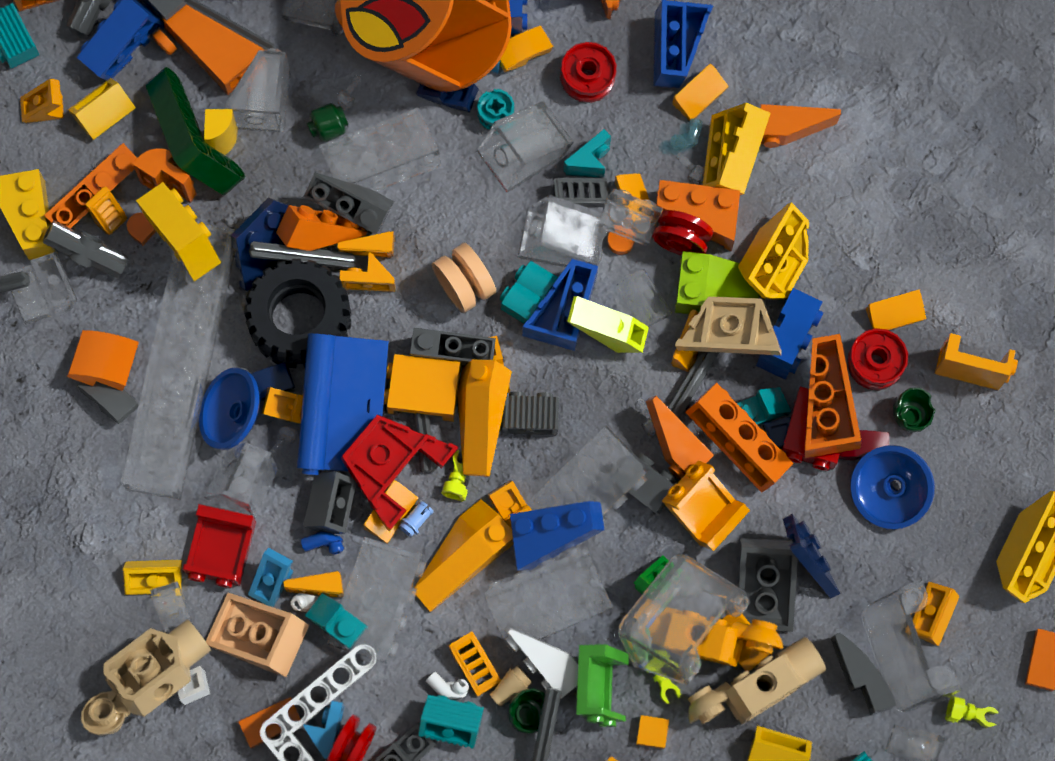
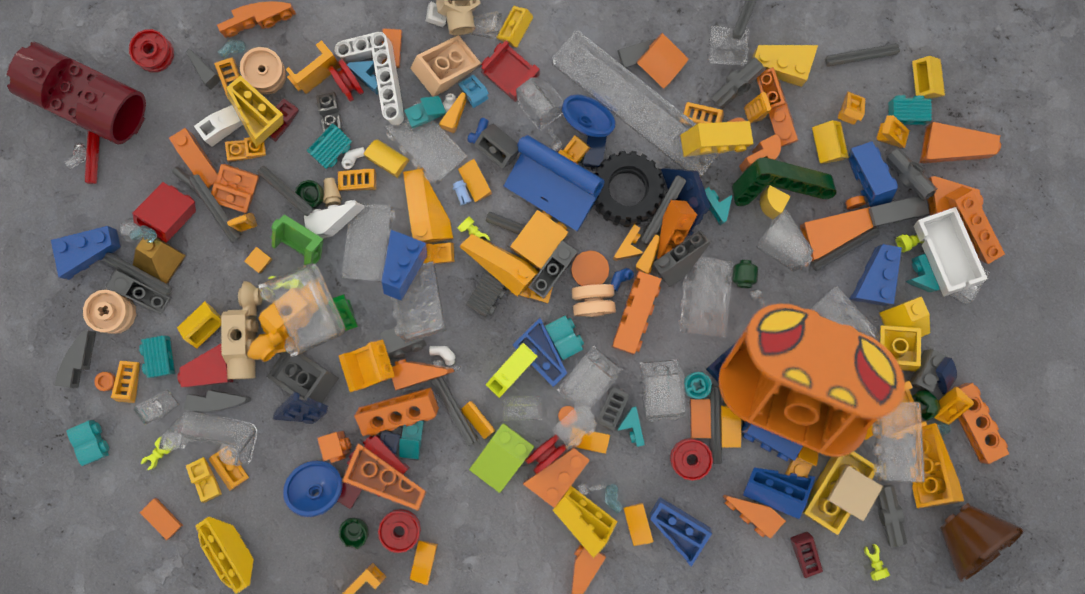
camera: 120 degrees right, 10 degrees up
(50, 43) = (893, 132): none -> light orange slope
(142, 255) = (711, 111): none -> light orange slope
(257, 191) = (719, 210): none -> teal slope
(380, 457) = (509, 192): red wing -> none
(412, 267) = (621, 276): none -> blue arm
(423, 641) = (386, 157): none -> yellow brick
(425, 307) = (590, 268): none -> orange tile
(449, 222) = (636, 312): none -> orange wedge
(529, 66) = (715, 440): none -> dark grey axle
(534, 87) = (700, 418): none -> orange tile
(631, 426) = (444, 352): none -> white arm
(731, 327) = (464, 446): tan wing -> none
(777, 254) = (499, 505): yellow wedge -> none
(792, 334) = (446, 485): blue wedge -> none
(825, 488) = (334, 446): none -> orange brick
(829, 709) = (205, 370): none -> red slope
(966, 635) = (204, 479): none -> yellow slope

